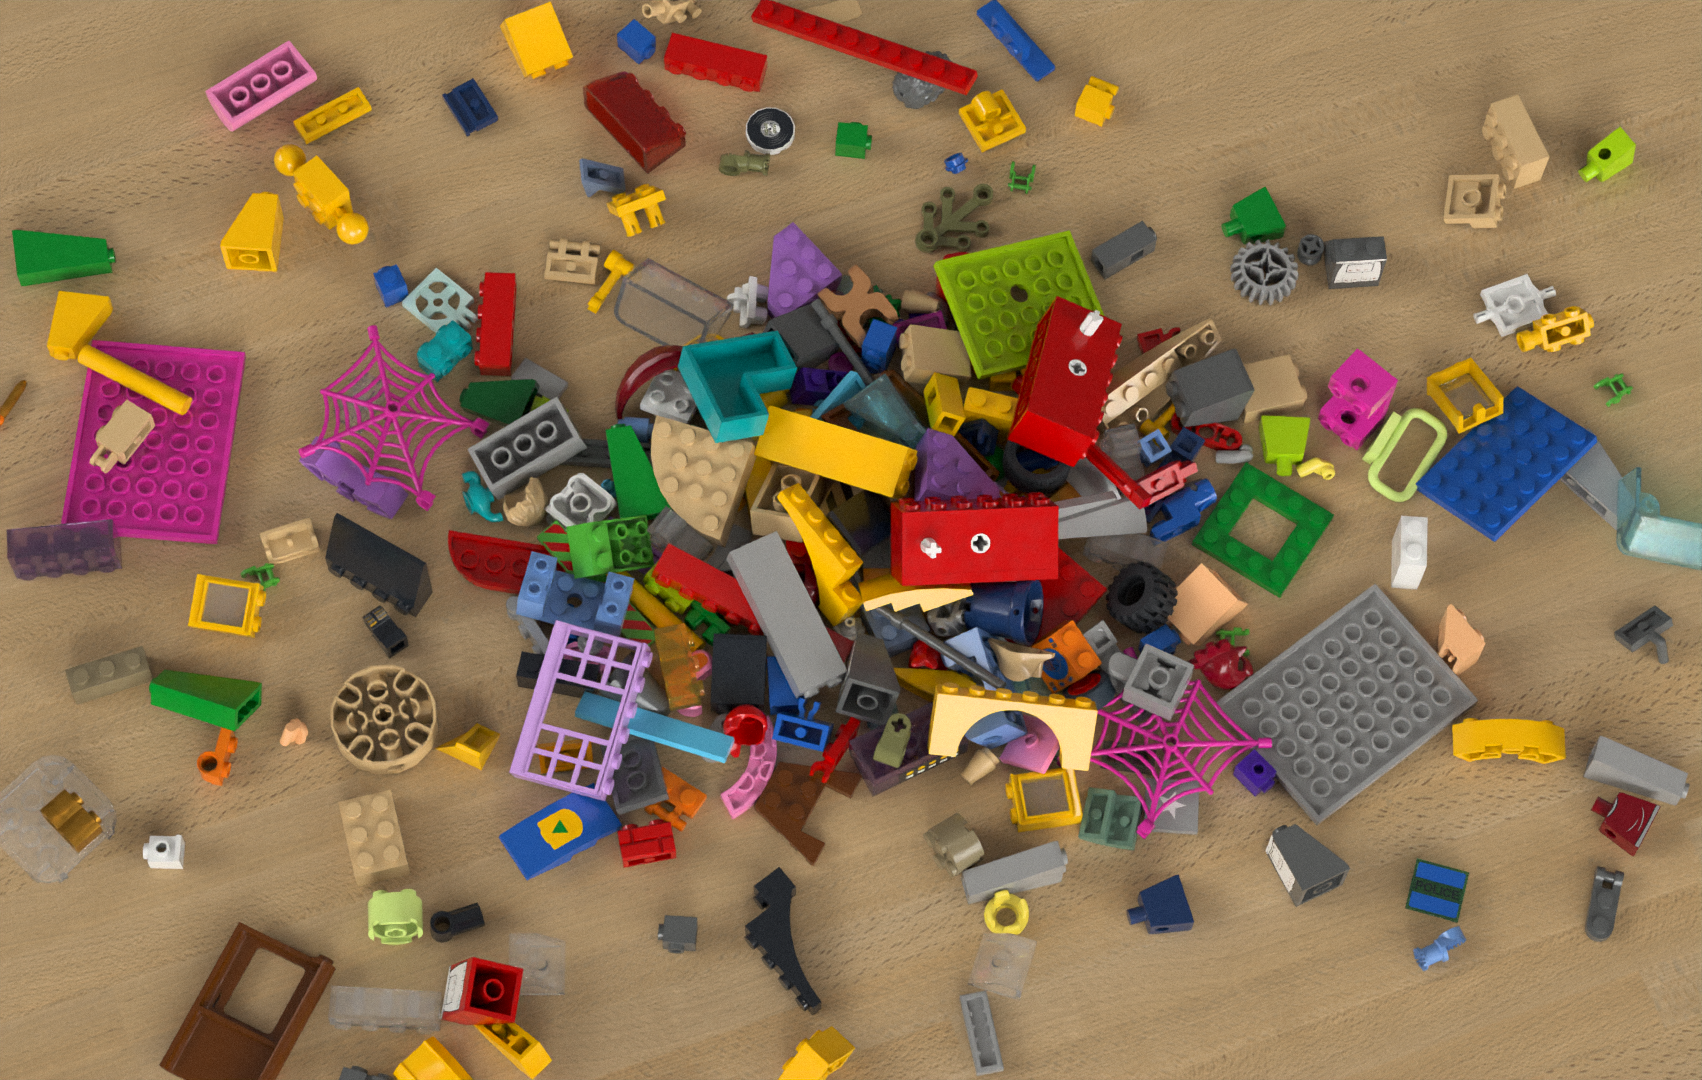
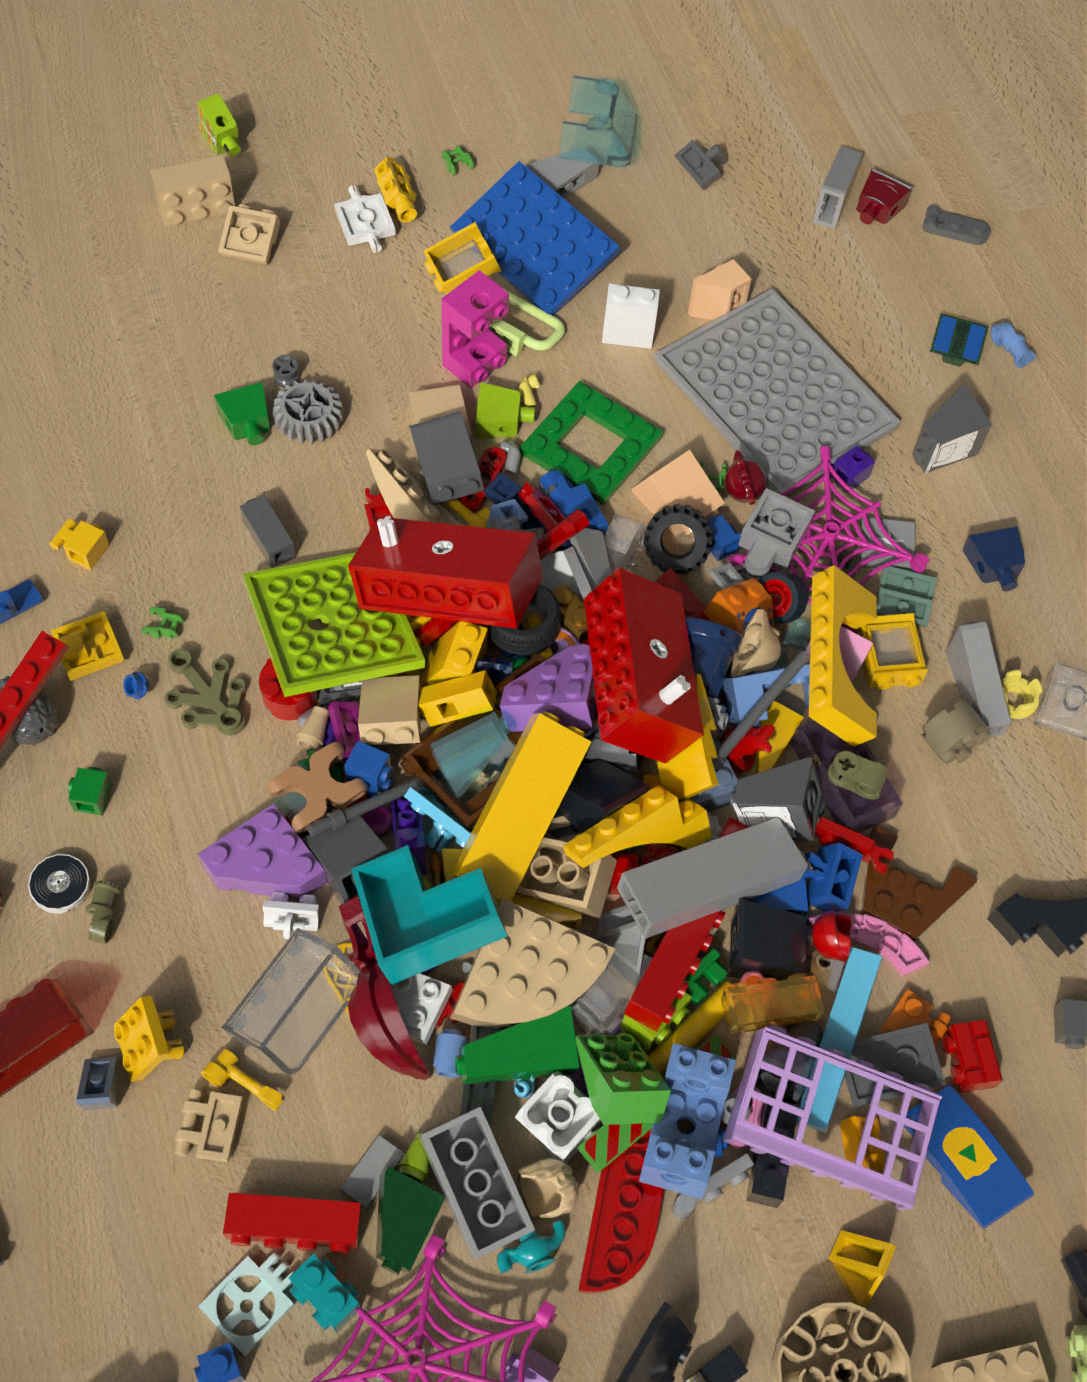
camera: 90 degrees left, 5 degrees down
(1354, 262) = (305, 327): dark grey slope -> none
(1528, 738) = (813, 261): yellow brick -> none

